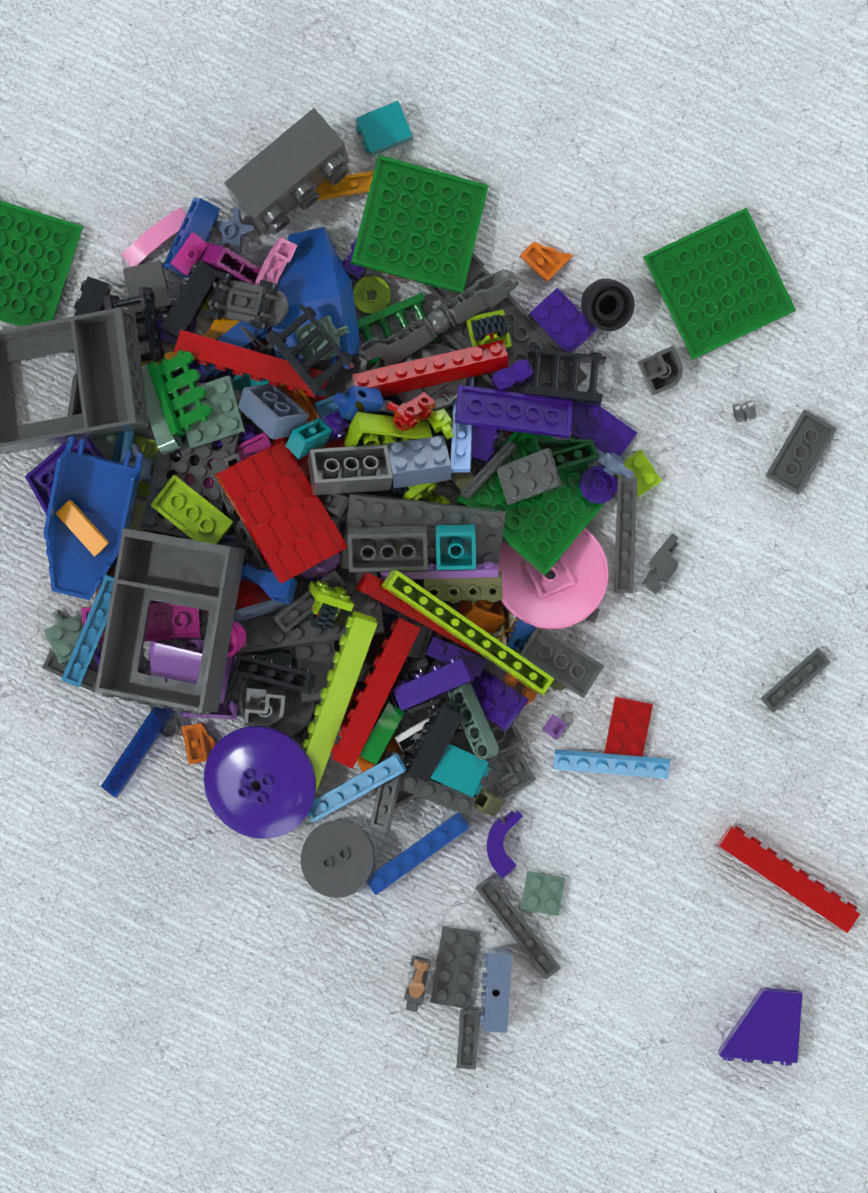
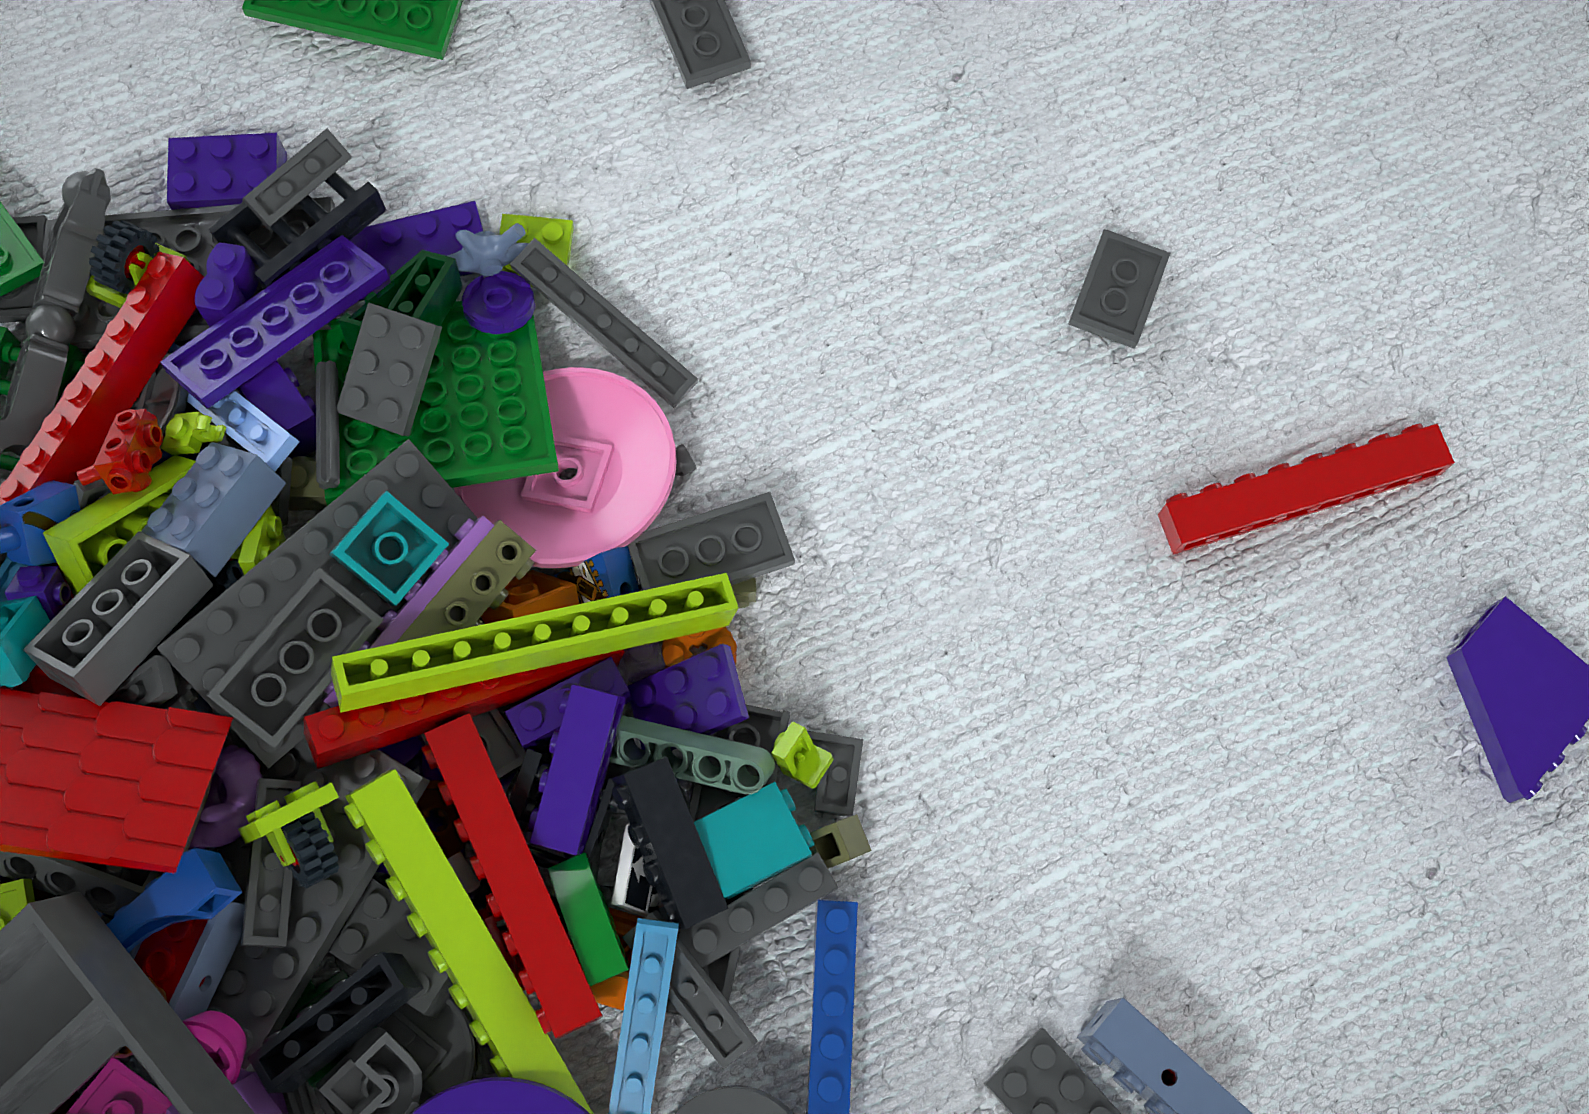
camera: 60 degrees left, 15 degrees down
(495, 850) = (921, 891): dark purple arch -> none
(508, 762) = (800, 757): none -> lime bracket
(517, 927) = (1079, 958): dark grey plate -> none
(542, 893) = (1053, 875): sand green plate -> none
(544, 260) = (121, 137): orange wing -> none
(554, 727) = (804, 647): medium lavender plate -> none
(580, 364) = (297, 178): none -> dark grey plate
(607, 304) = (254, 87): black piece -> none
(611, 764) = (928, 609): dark azure plate -> none
(628, 727) = (894, 544): red plate -> none
(661, 370) = (416, 99): dark grey brick -> none
(663, 565) = (693, 310): dark grey plate -> none
(744, 411) = (571, 47): flat silver wheel -> none
(795, 680) = (1011, 262): dark grey plate -> none
(819, 735) = (1119, 288): none -> dark grey plate

